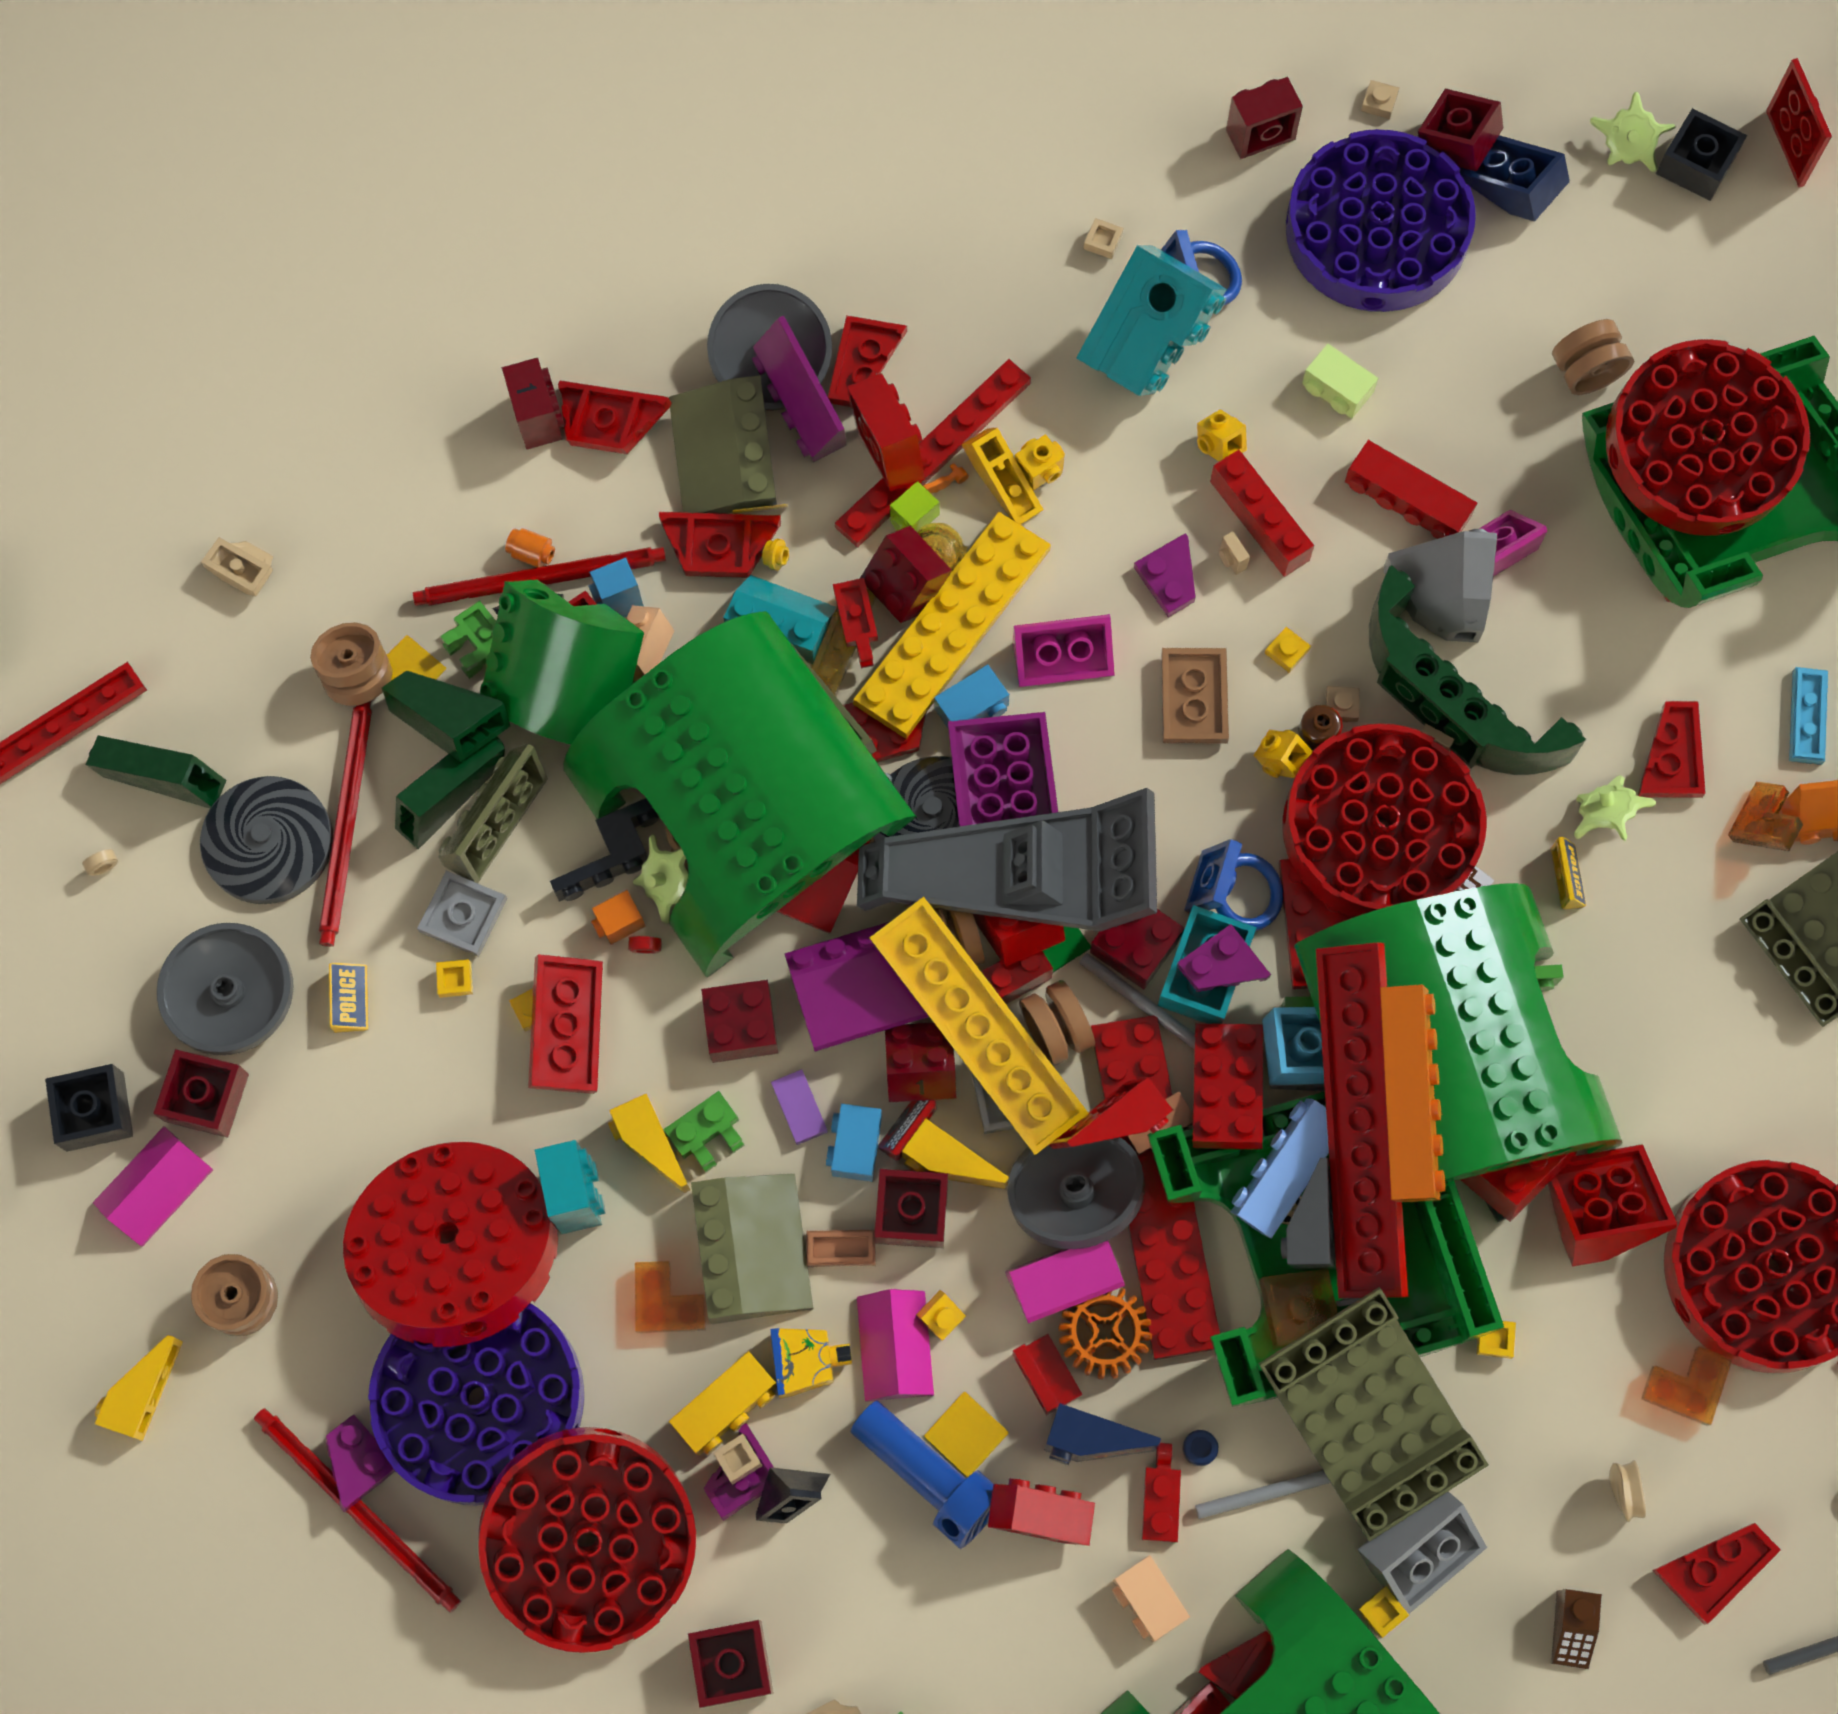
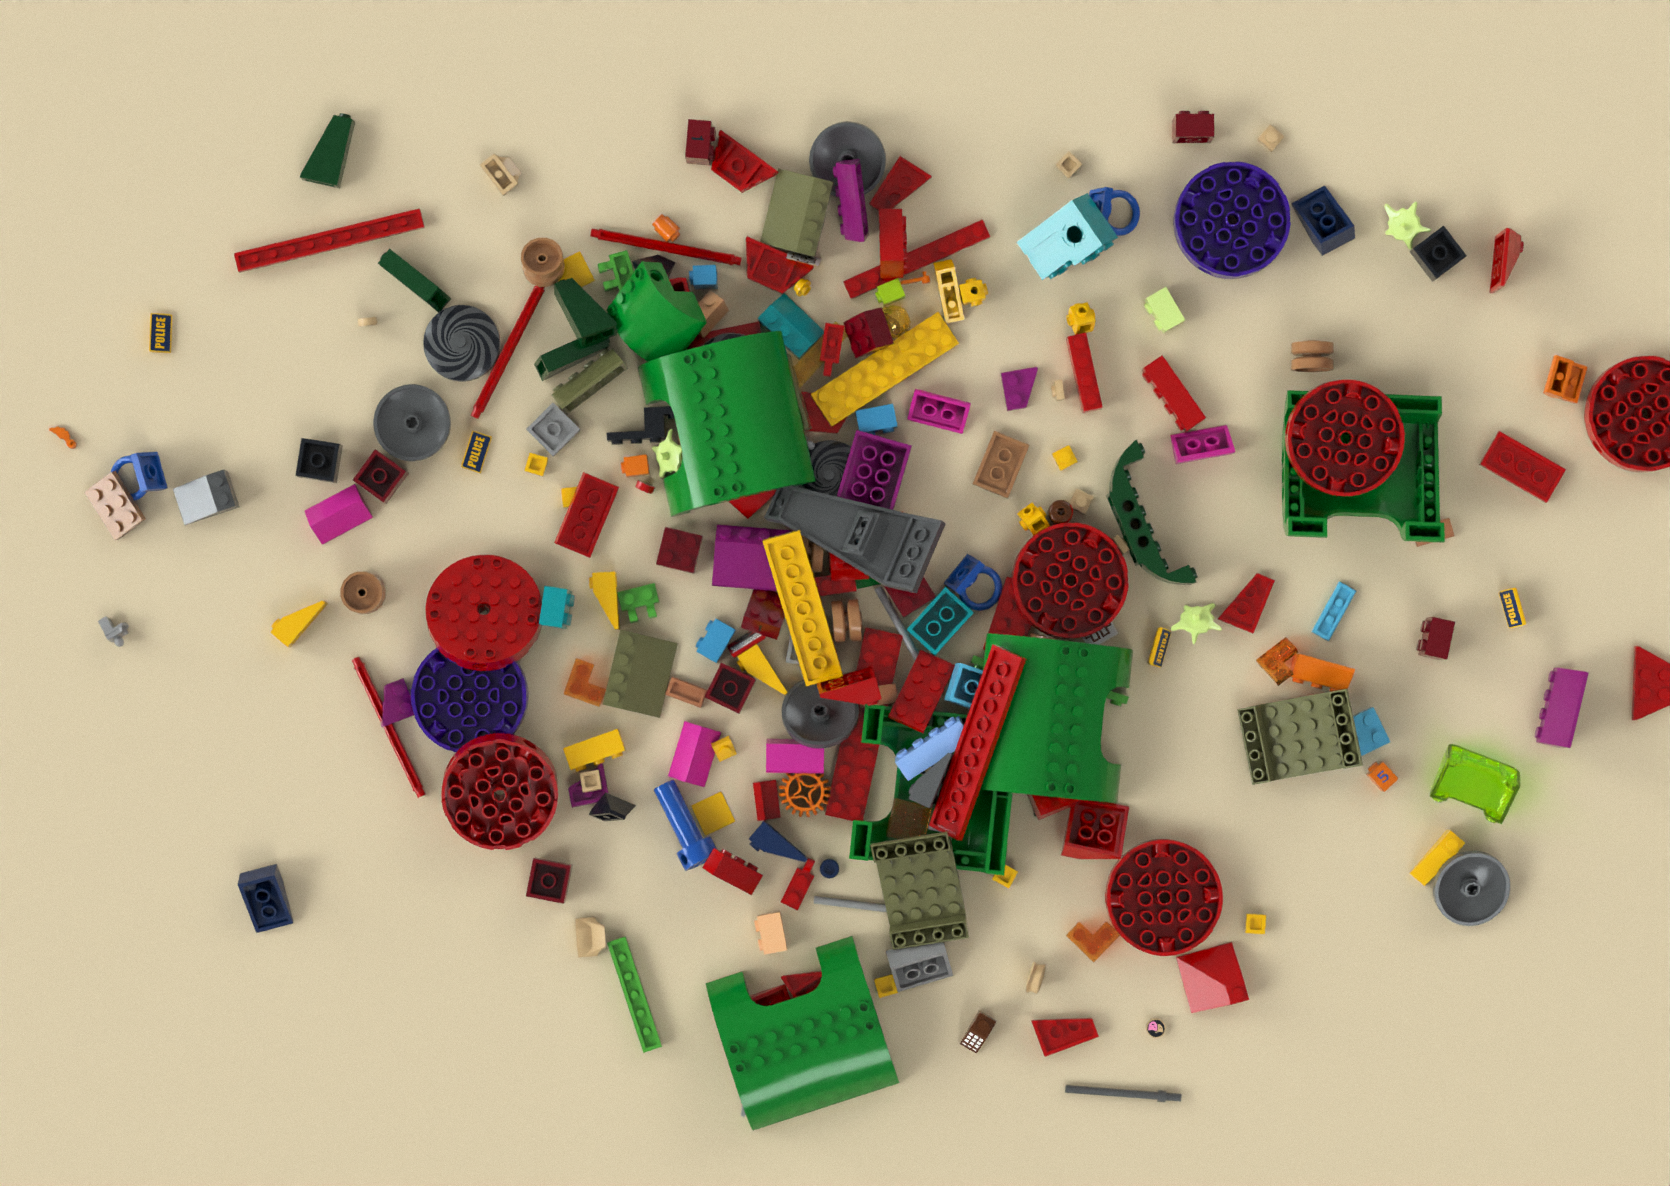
camera: 25 degrees right, 15 degrees up
(799, 1107) = (693, 608): medium lavender tile -> none
(805, 1360) = (645, 743): torso -> none
(1222, 962) = (946, 625): magenta wing -> none
(1410, 1093) = (1005, 742): orange brick -> none
(1450, 583) = (1166, 459): light grey brick -> none
(1463, 127) = (1304, 182): dark red brick -> none

